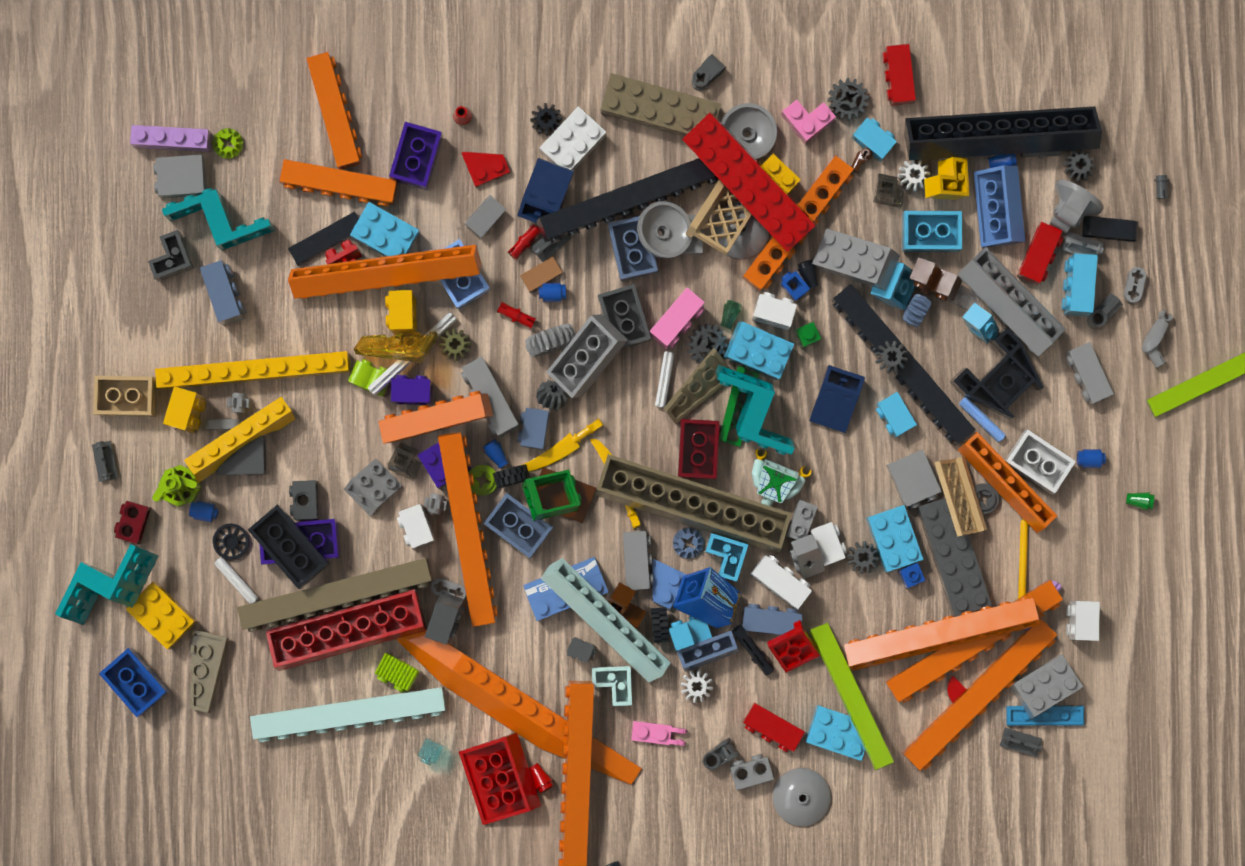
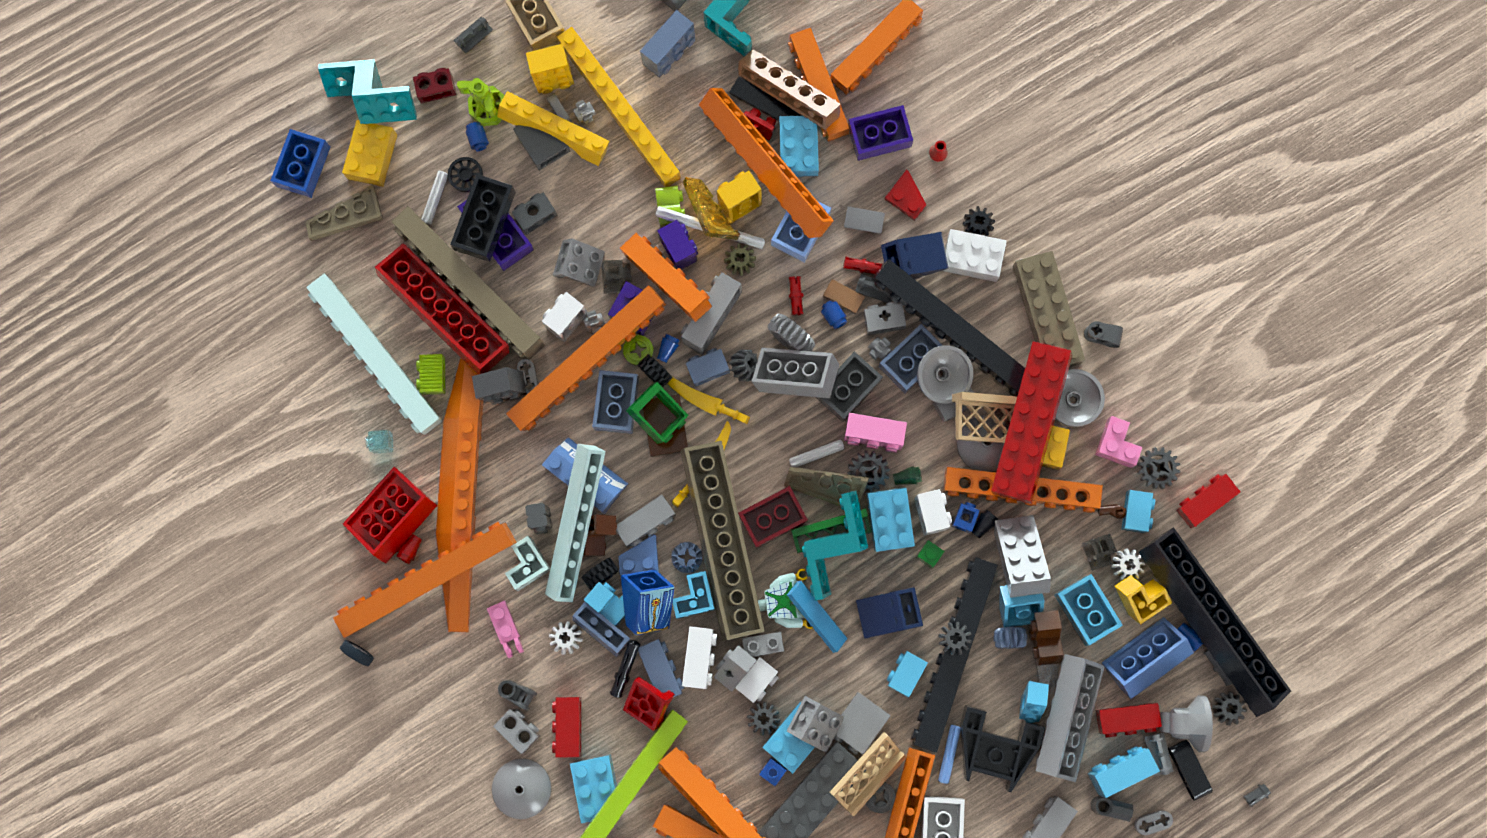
camera: 70 degrees right, 5 degrees down
(339, 212) = (789, 89): none -> medium nougat brick
(590, 243) = (877, 325): none -> light grey brick
(606, 271) = (879, 348): none -> light grey gear
(805, 461) = (817, 616): none -> dark azure tile
(894, 516) = (815, 724): none -> light grey bracket

